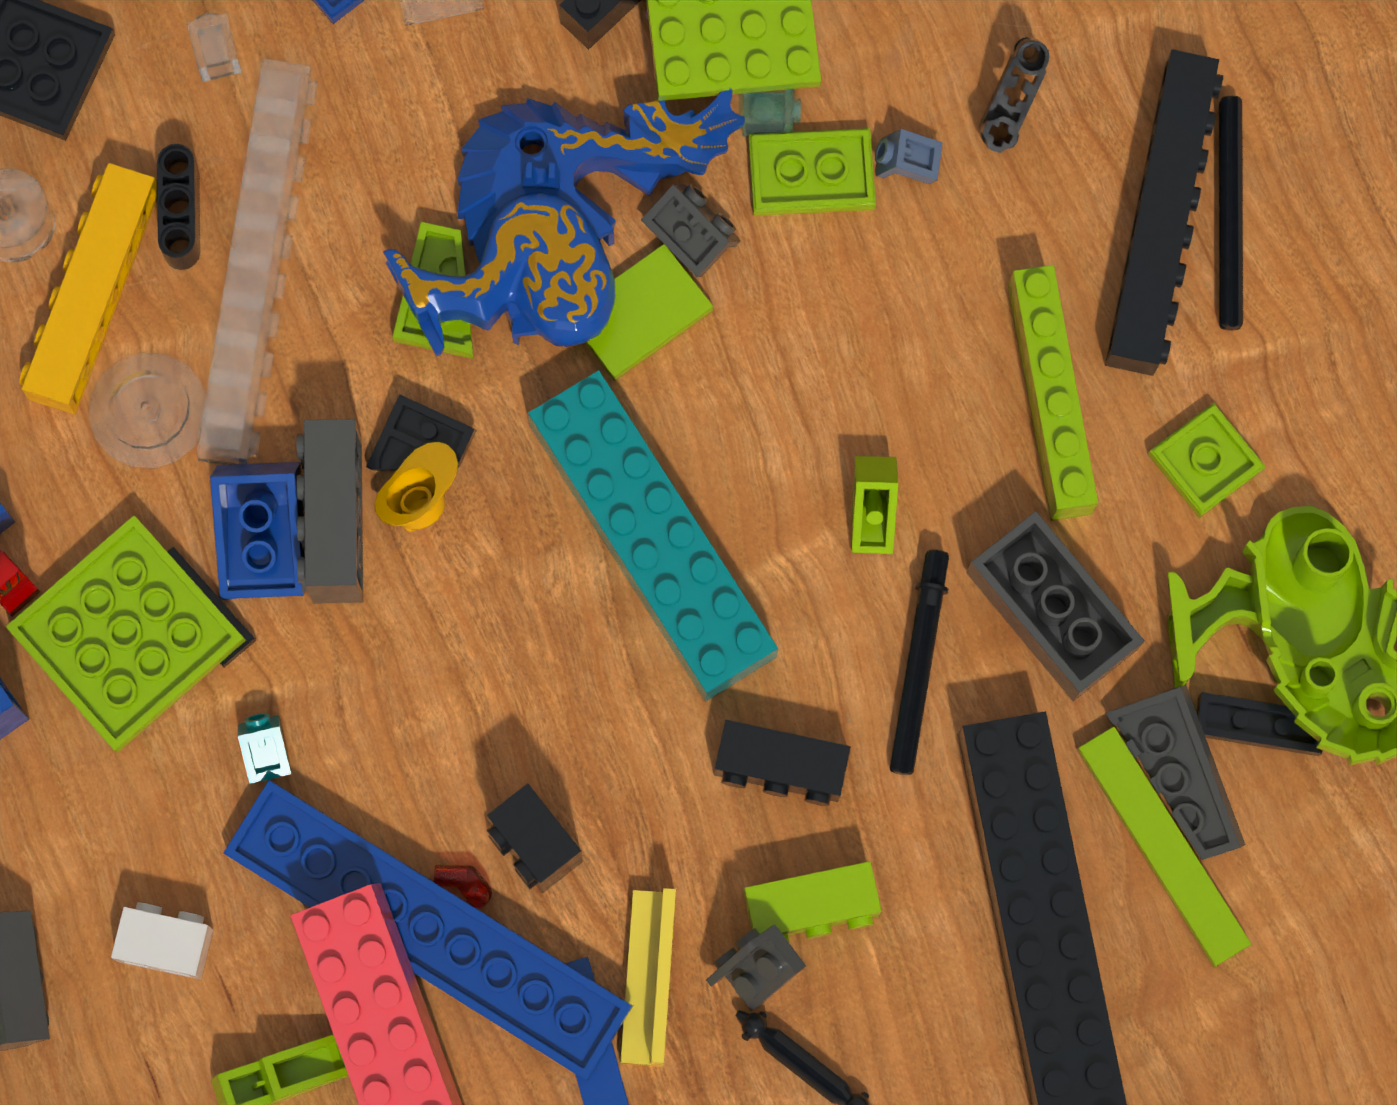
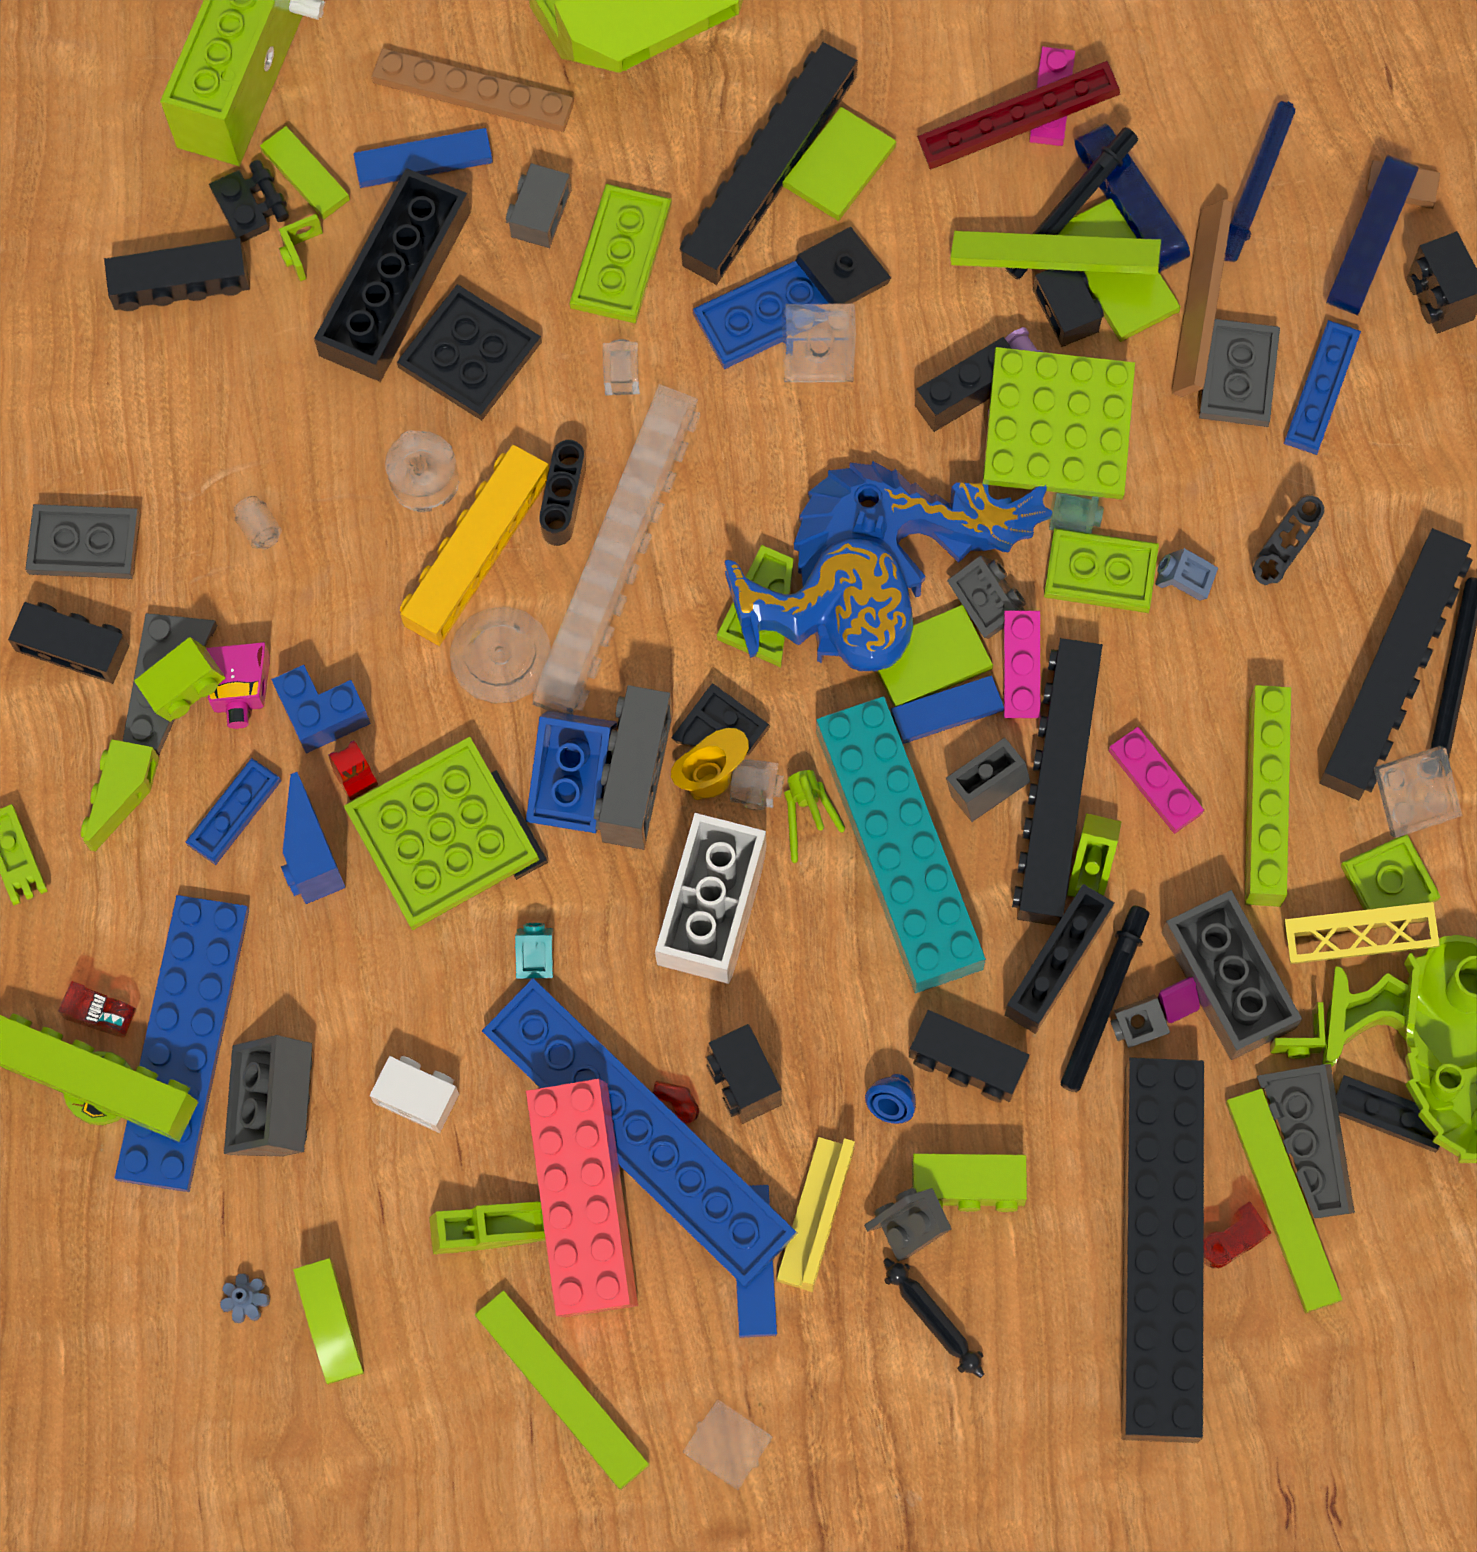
camera: 20 degrees right, 5 degrees down
(454, 647) = (712, 898): none -> white brick
(475, 500) = (756, 784): none -> clear brick
(533, 497) = (807, 792): none -> lime plant
(672, 368) = (947, 709): none -> blue tile
(706, 829) = (891, 1099): none -> blue brick
(736, 440) = (988, 779): none -> dark grey brick
(746, 299) = (1021, 664): none -> dark pink plate
(816, 426) = (1059, 782): none -> black brick
(860, 629) = (1059, 959): none -> black brick
(923, 400) = (1156, 780): none -> dark pink plate
(979, 684) = (1153, 1025): none -> dark grey brick
(1002, 646) = (1179, 1000): none -> magenta slope
(1114, 912) = (1226, 1246): none -> clear red leg
(1149, 671) = (1302, 1047): none -> lime bracket
(1185, 513) = (1361, 920): none -> light yellow fence
(1217, 353) = (1418, 791): none -> clear plate

